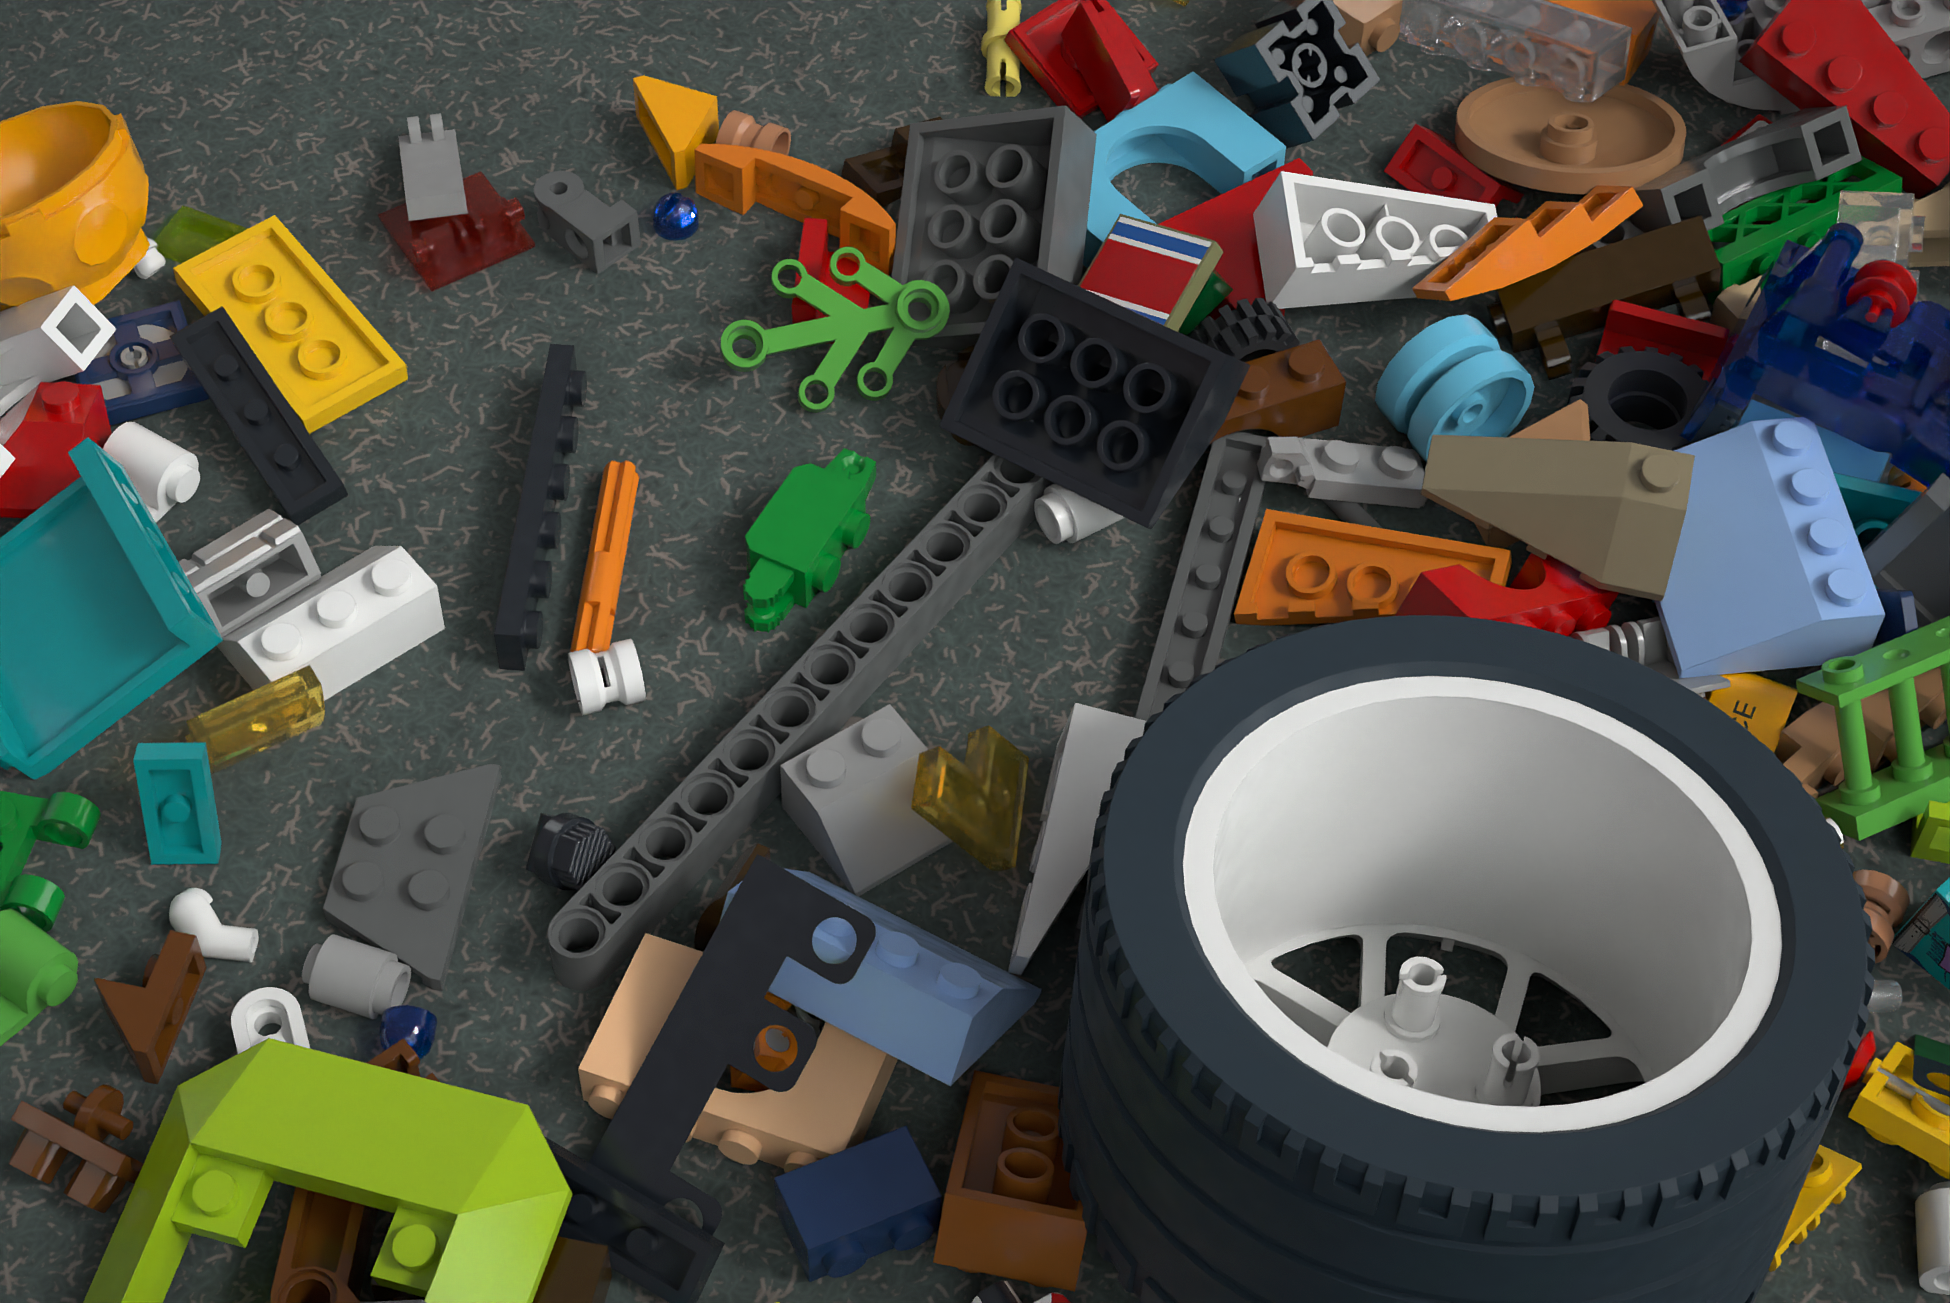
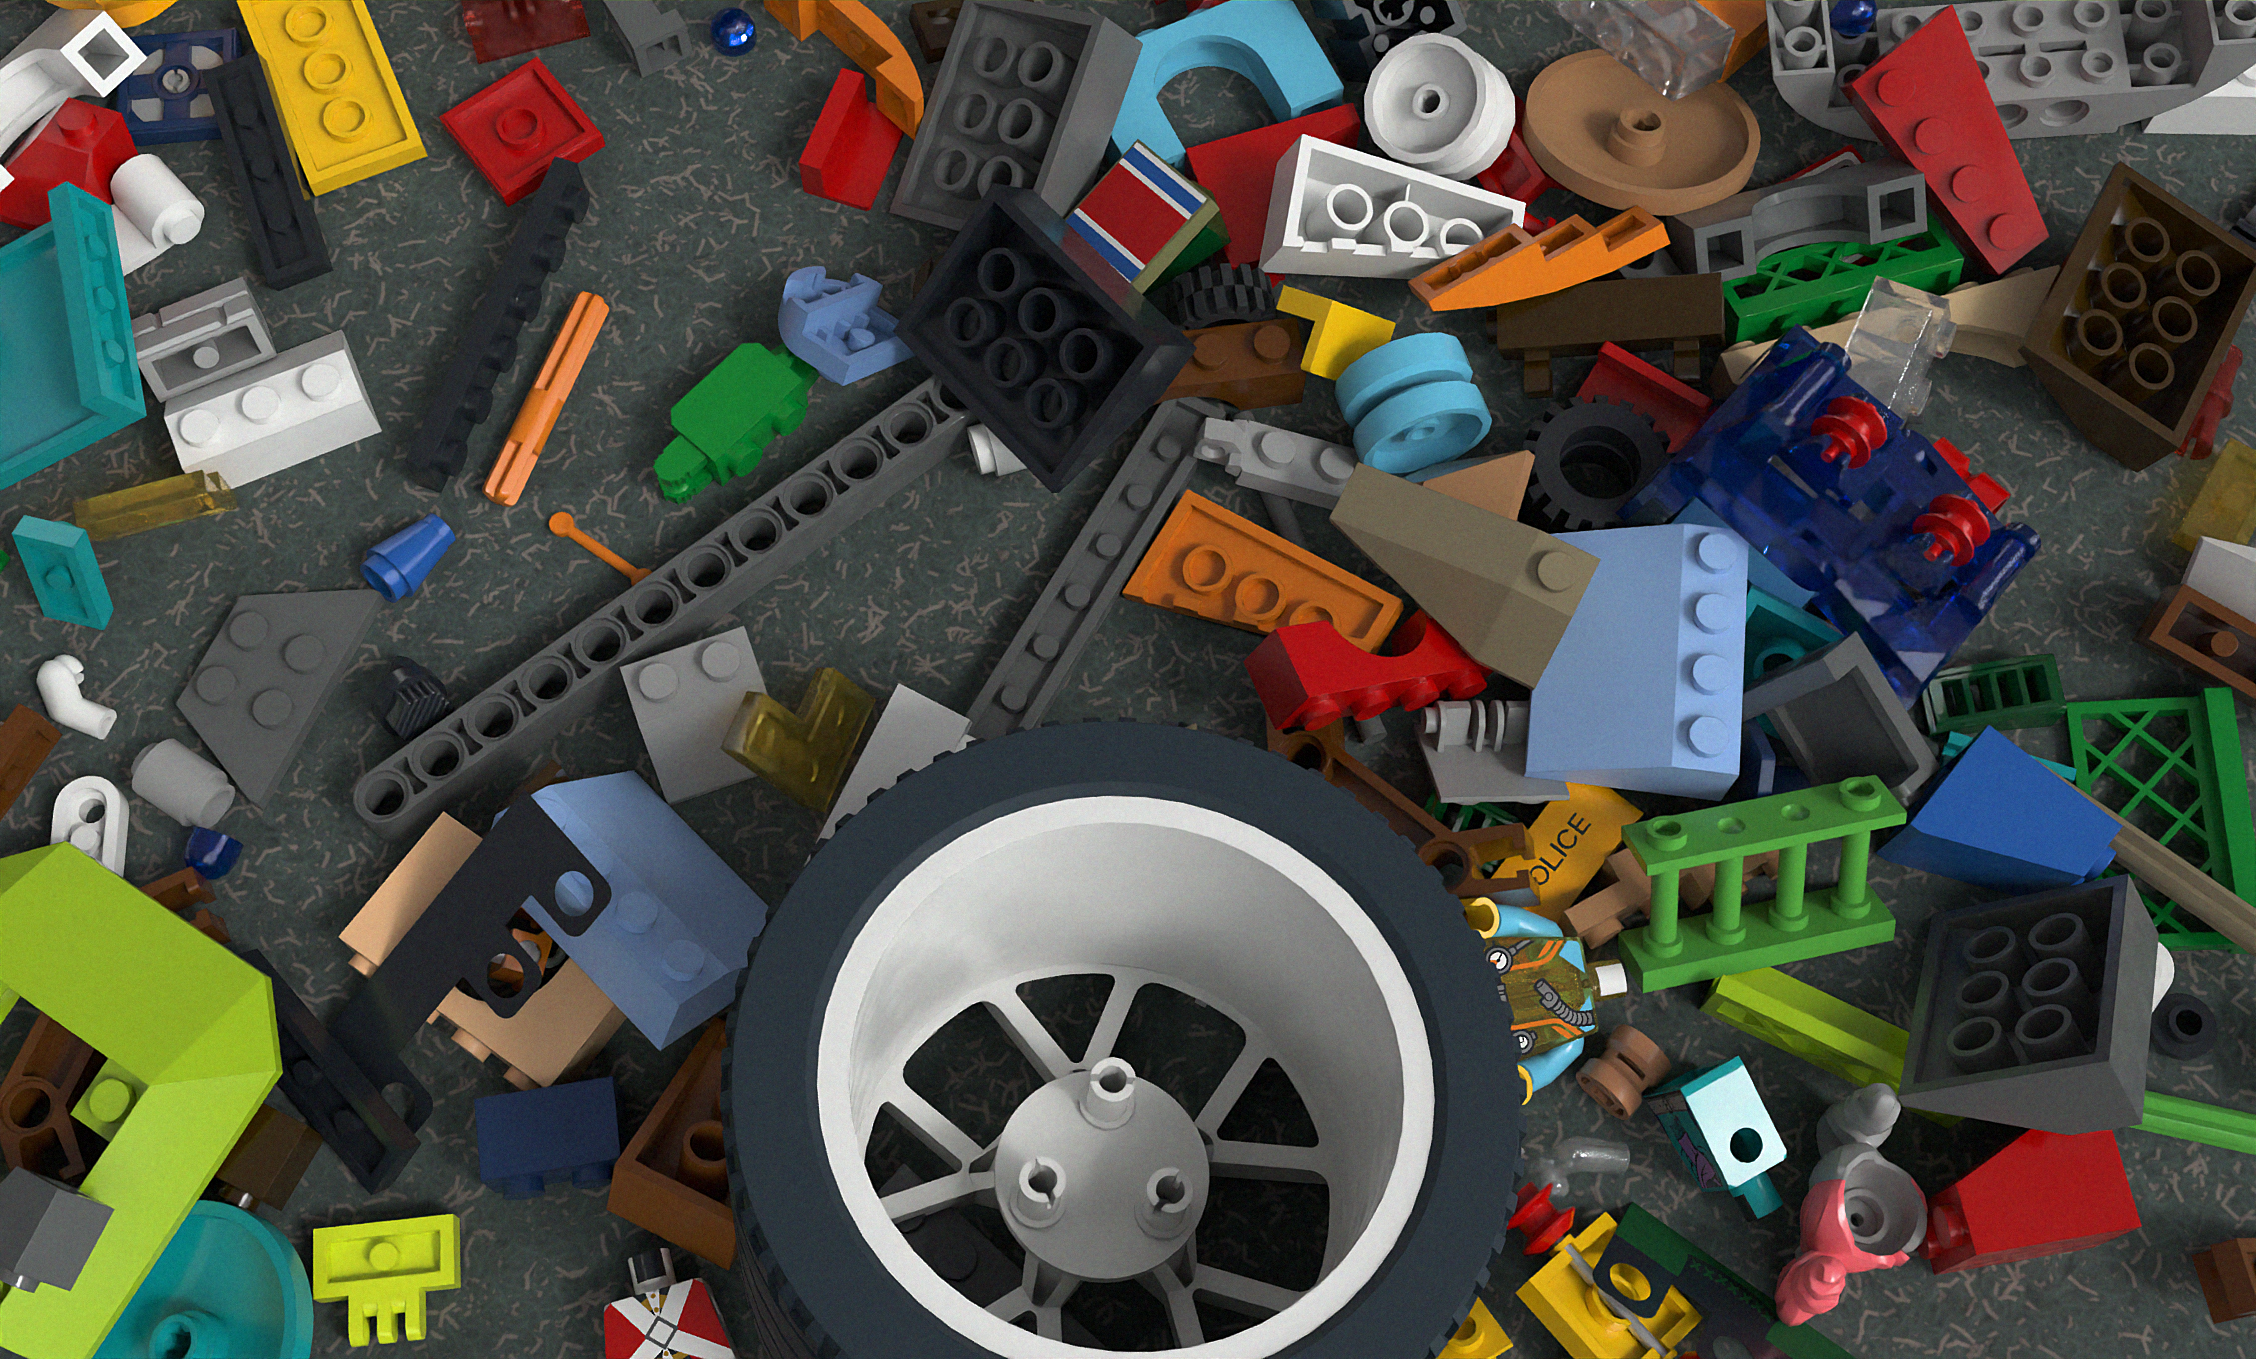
camera: 15 degrees right, 15 degrees up
(497, 337) = (519, 128): none -> red plate
(515, 729) = (406, 558): none -> blue cone
(621, 675) = (504, 523): white wheel -> none
(659, 673) = (563, 525): none -> orange hinge
(845, 325) = (844, 196): bright green plant -> none
(881, 438) = (839, 325): none -> medium blue slope
(1357, 335) = (1339, 331): none -> yellow panel
(1384, 135) = (1439, 107): none -> white wheel

